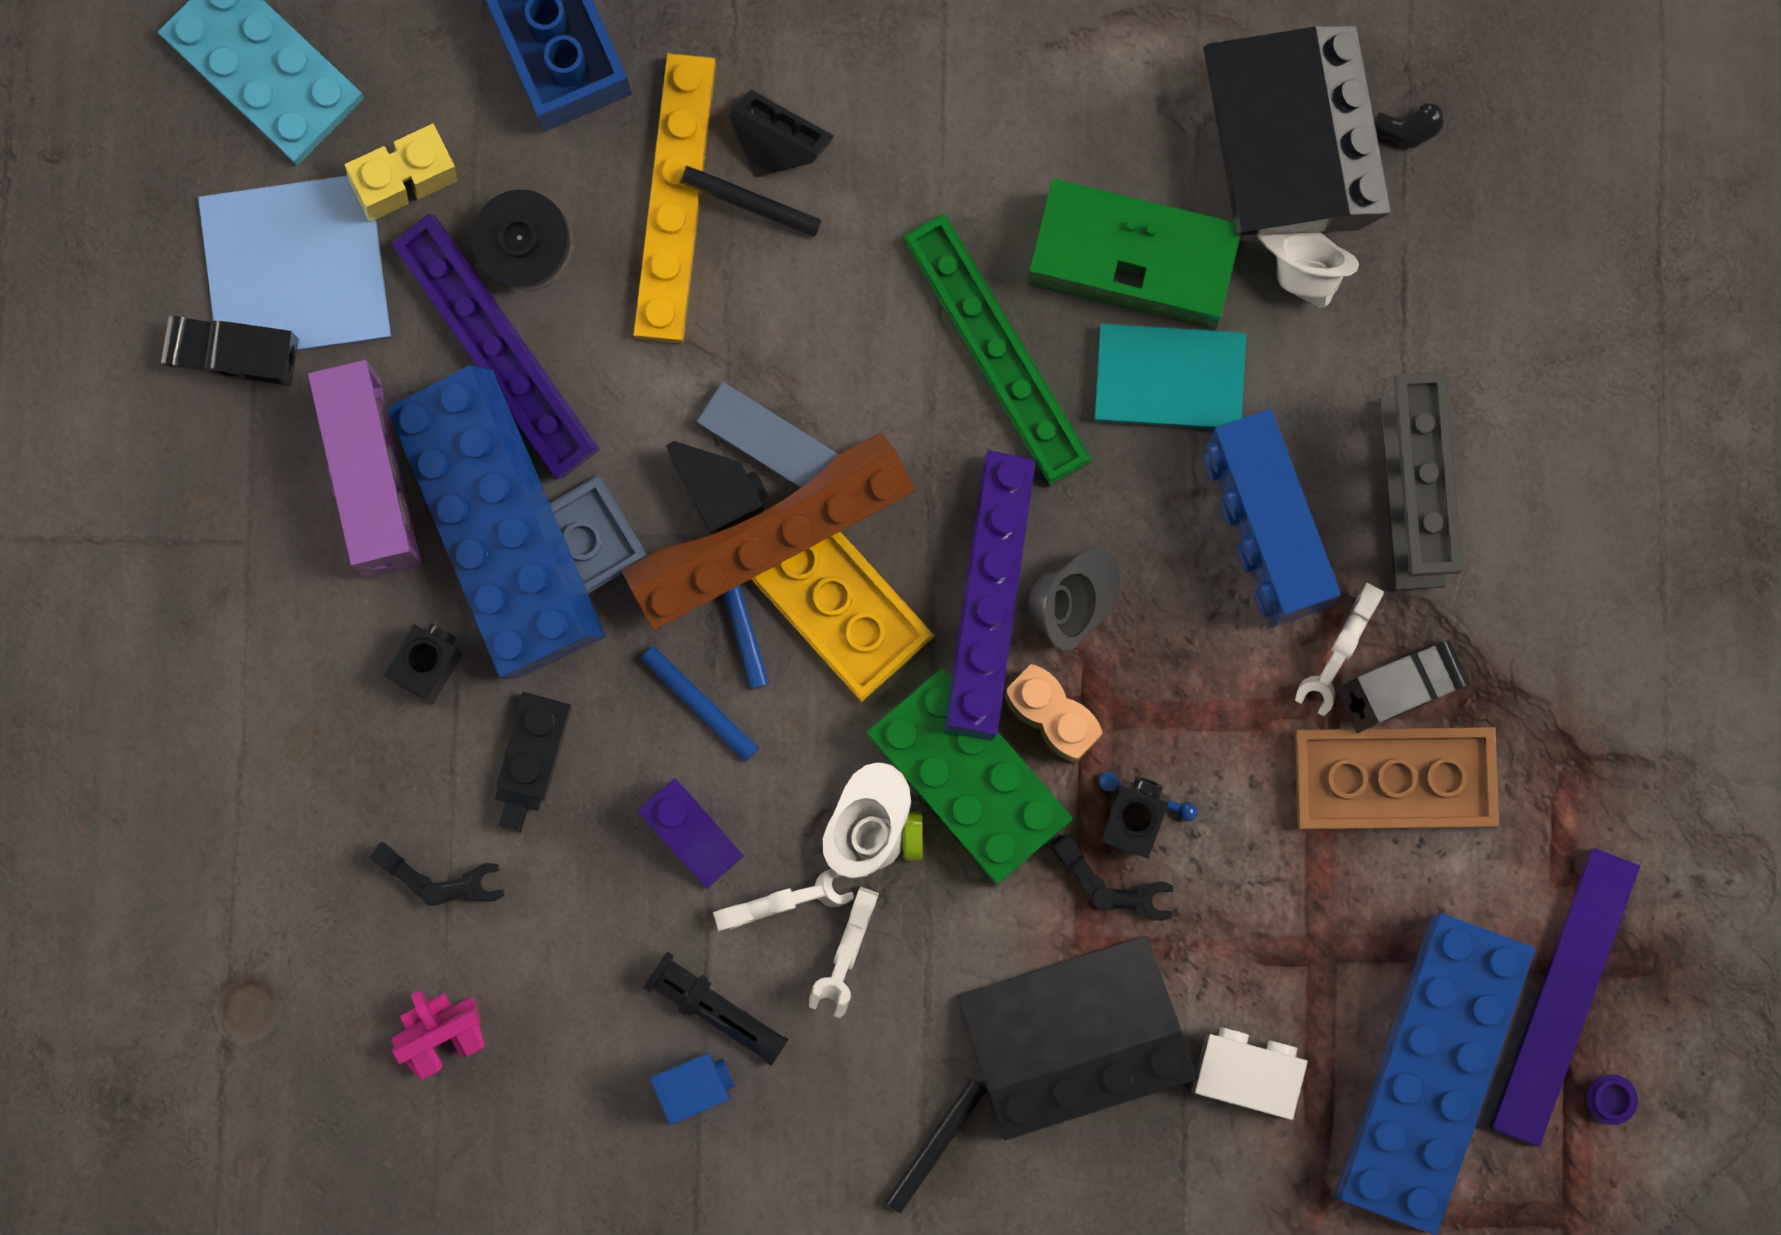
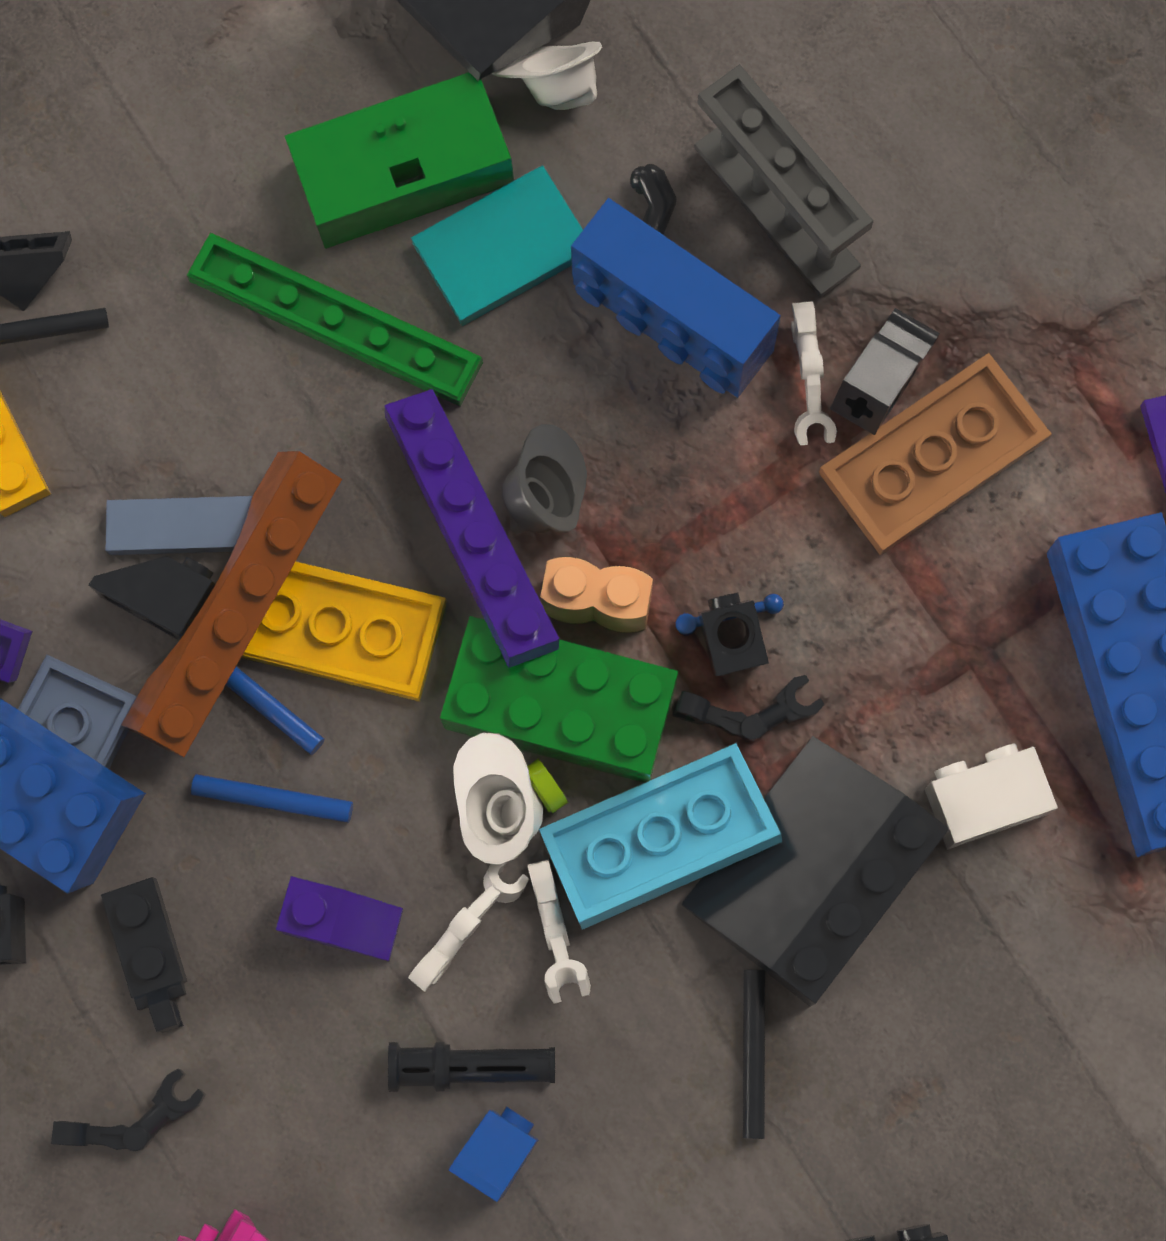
camera: 30 degrees left, 5 degrees down
(975, 934) = (660, 836): none -> medium azure plate
(1323, 420) = (656, 188): none -> black arm

